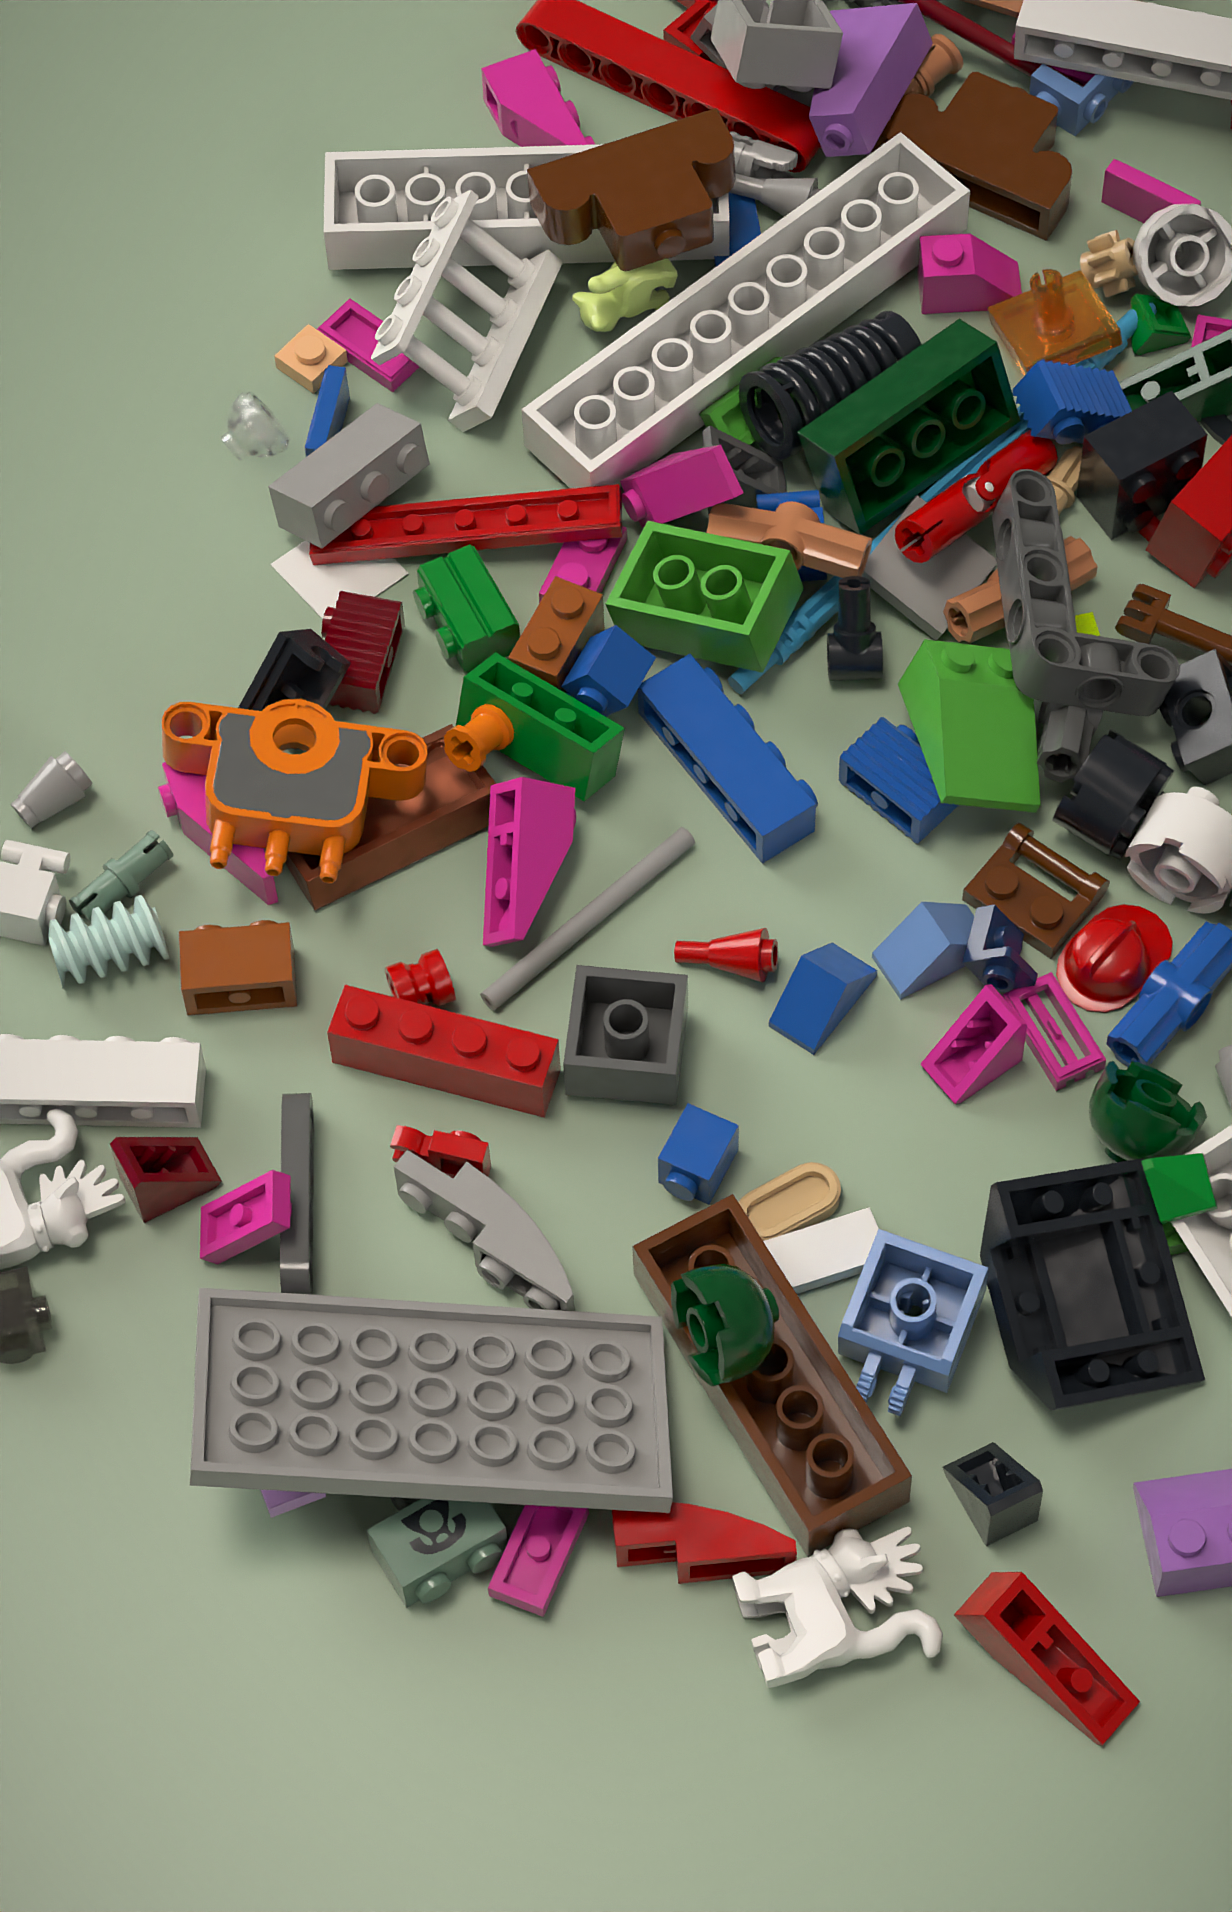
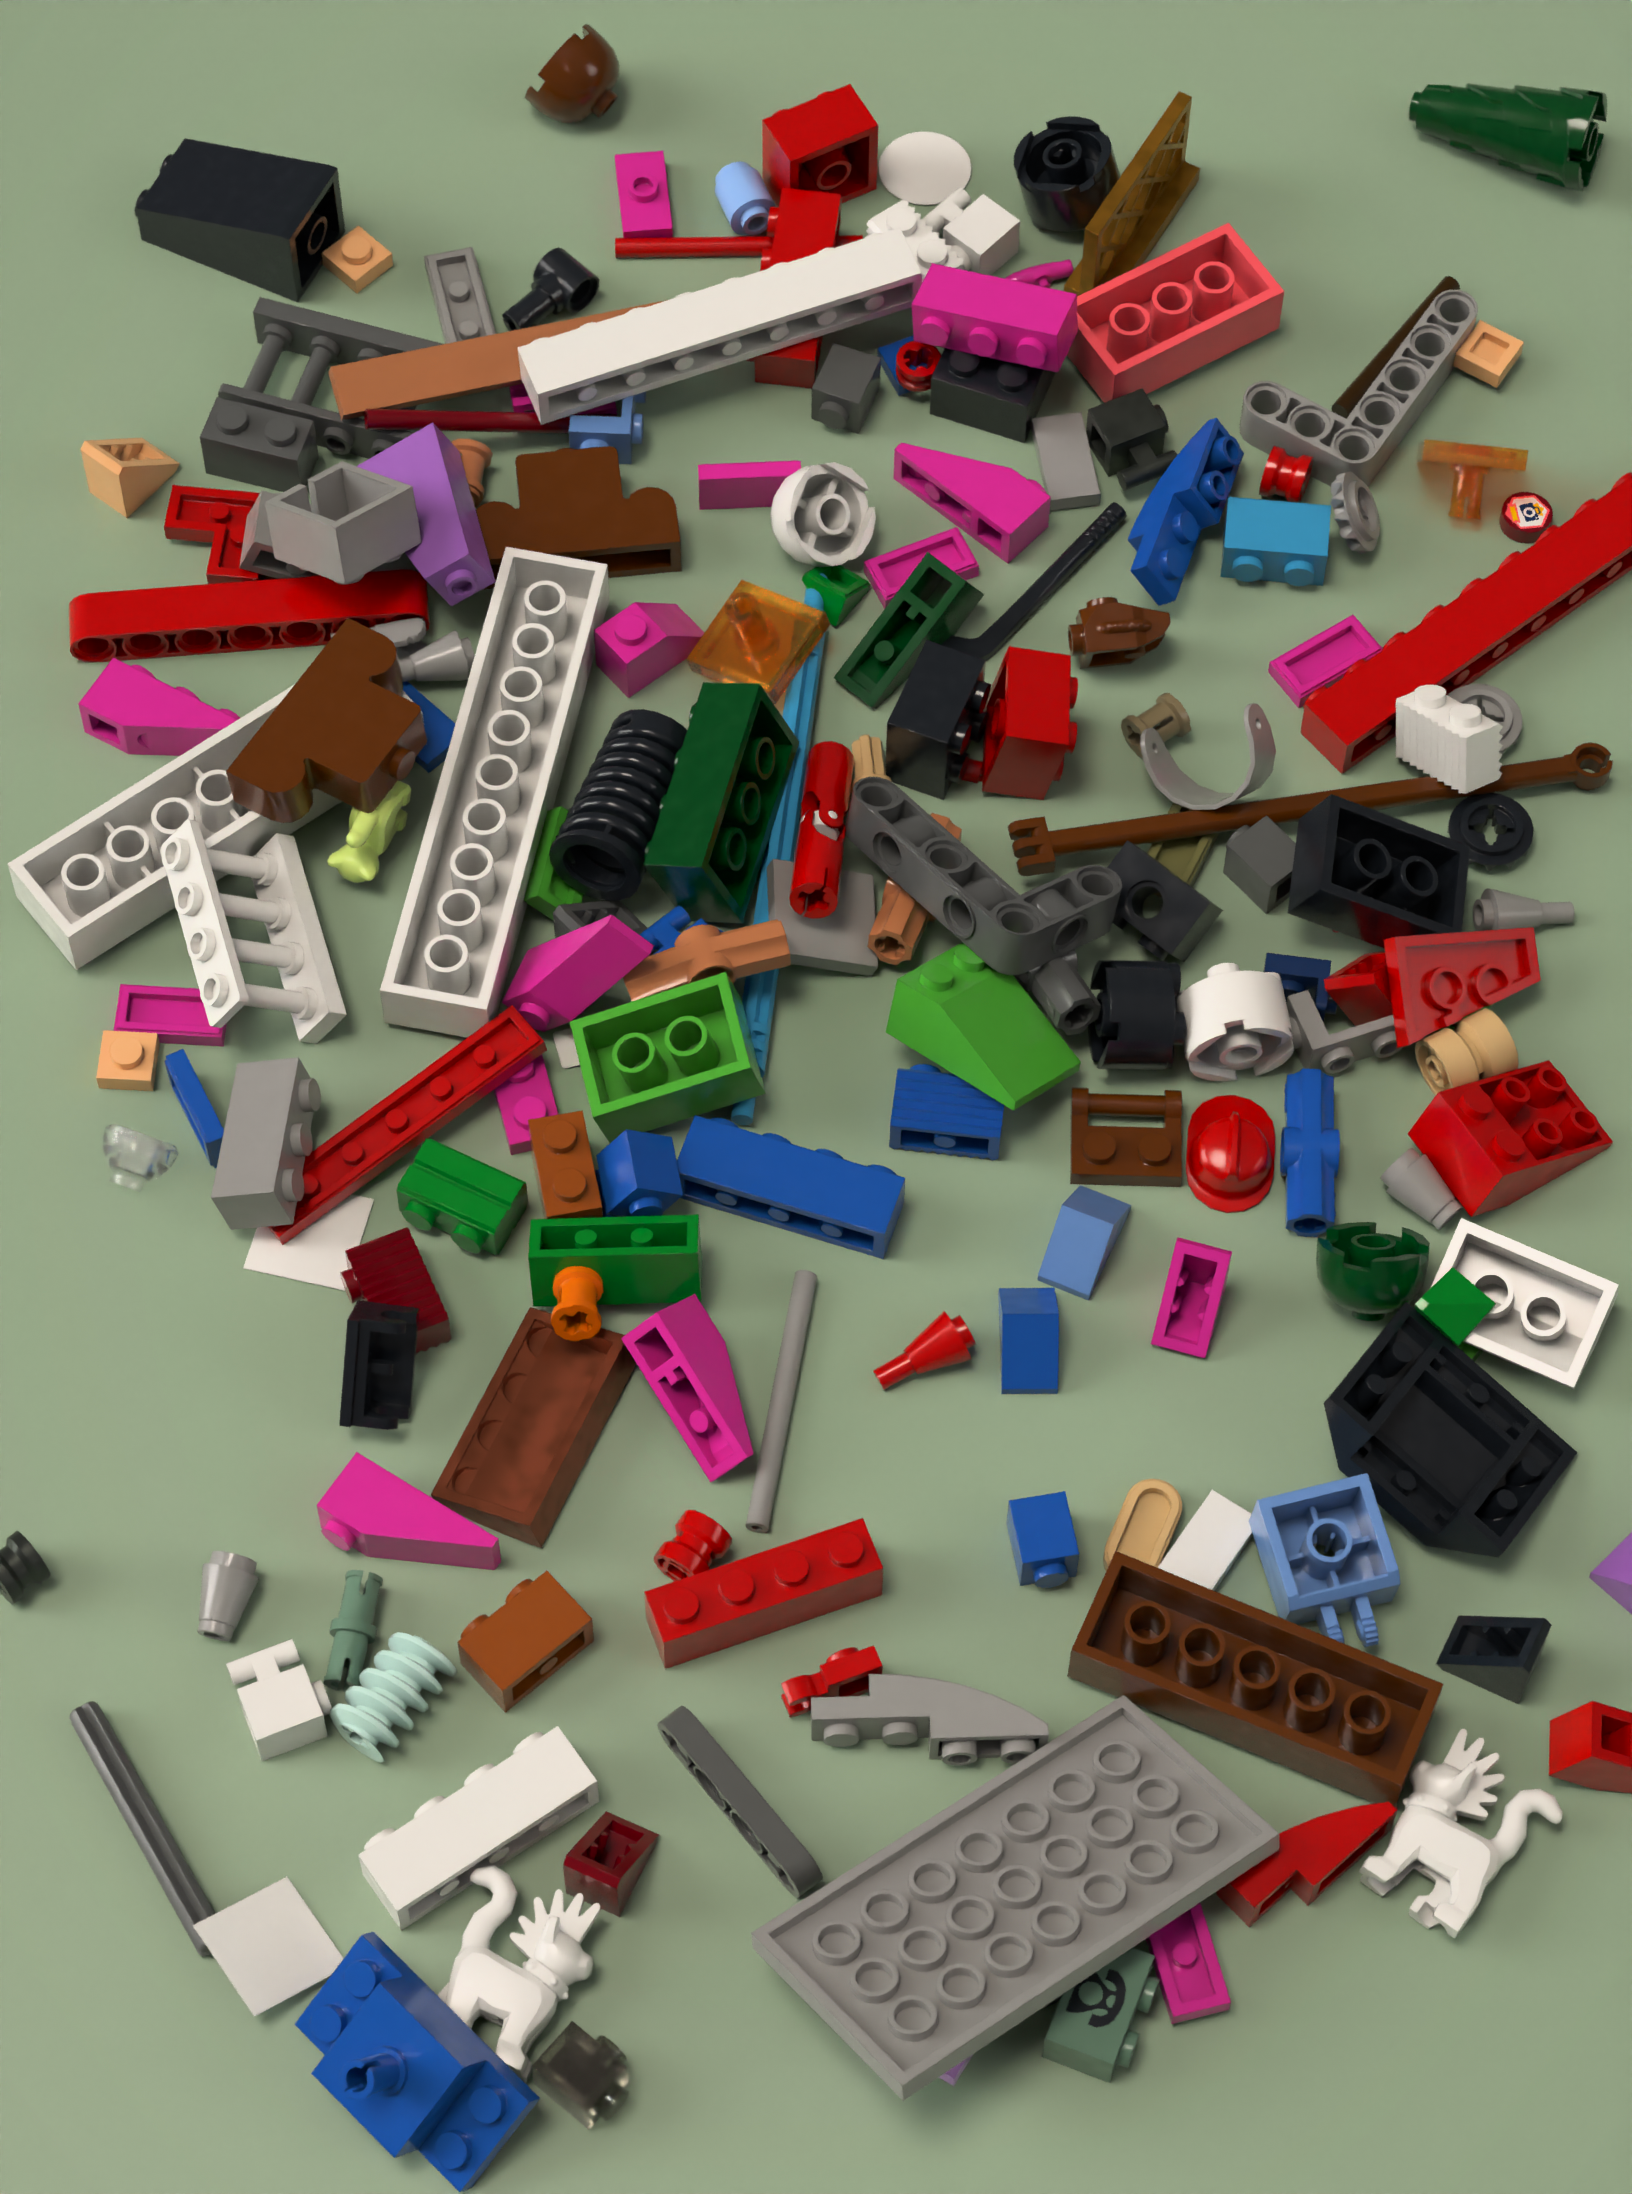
camera: 40 degrees left, 0 degrees up
(245, 1217) = (720, 1849): dark pink plate -> none
(284, 799) = (455, 1468): orange piece -> none
(626, 1034) = (907, 1477): dark grey brick -> none
(726, 1320) = (1212, 1659): dark green cylinder -> none
(854, 645) = (820, 1019): black pin -> none
(995, 951) = (1144, 1209): dark blue bracket -> none
(1069, 400) = (839, 701): blue brick -> none
(1073, 1067) = (1273, 1268): dark pink tile -> none
(1109, 263) = (762, 559): tan gear -> none

